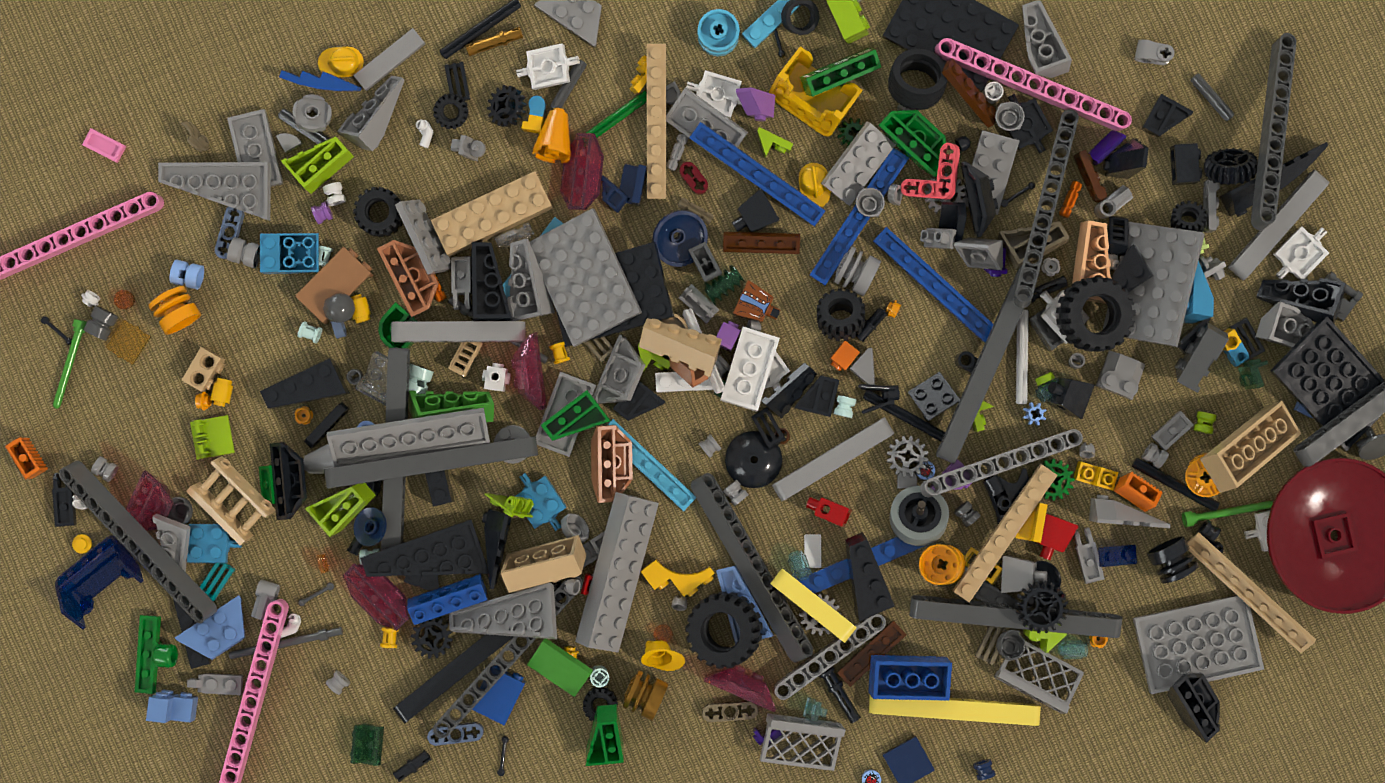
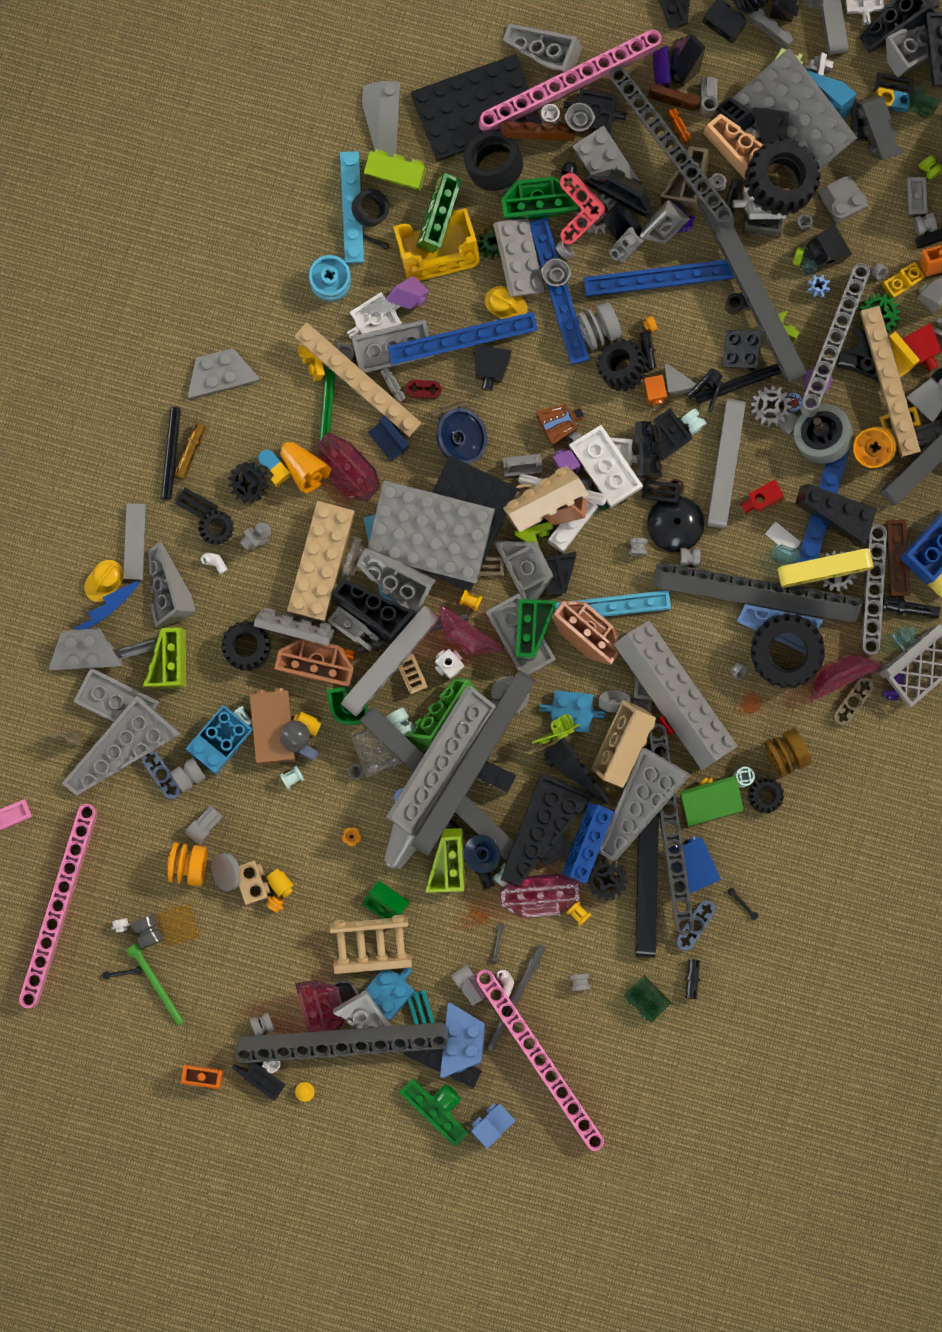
camera: 55 degrees left, 5 degrees down
(91, 575) = (336, 1100): clear blue windscreen -> none
(124, 299) = (143, 900): clear orange tile -> none
(183, 273) = (173, 831): light blue wheel -> none
(194, 343) = (225, 871): none -> light grey tile
(212, 296) = (201, 828): none -> light grey piece
(212, 437) = (308, 921): lime hinge -> none
(217, 683) = (503, 1077): light grey hinge -> none
(271, 92) = (83, 650): none -> light grey wing
(287, 480) = (393, 886): black wedge -> none
(288, 141) = (131, 670): light grey tile -> none
(306, 386) = (333, 810): black wedge -> none
(315, 123) = (133, 641): light grey plate -> none
(322, 212) = (208, 690): medium lavender wheel -> none
(326, 425) = (374, 824): black beam -> none
(334, 194) = (202, 669): white wheel -> none
(548, 66) = (245, 426): white plate -> none
(567, 88) = (271, 422): dark grey axle -> none
(572, 586) = (659, 733): light grey hinge -> none
(605, 739) = (794, 809): green wedge -> none
(613, 195) = (384, 460): dark blue tile -> none
(660, 656) = (768, 717): yellow piece -> none
(687, 584) = (729, 652): yellow arch -> none
(705, 262) = (495, 433): dark grey slope -> none
(723, 284) = (523, 433): clear green piece -> none
(761, 242) = (516, 379): reddish brown plate -> none
(768, 139) = (442, 309): lime slope -> none
(967, 513) = (852, 398): dark grey wheel -> none
(1022, 359) = (770, 262): white axle -> none
(1031, 185) = (644, 146): black hinge -> none
(1189, 210) = (764, 44): black tyre -> none

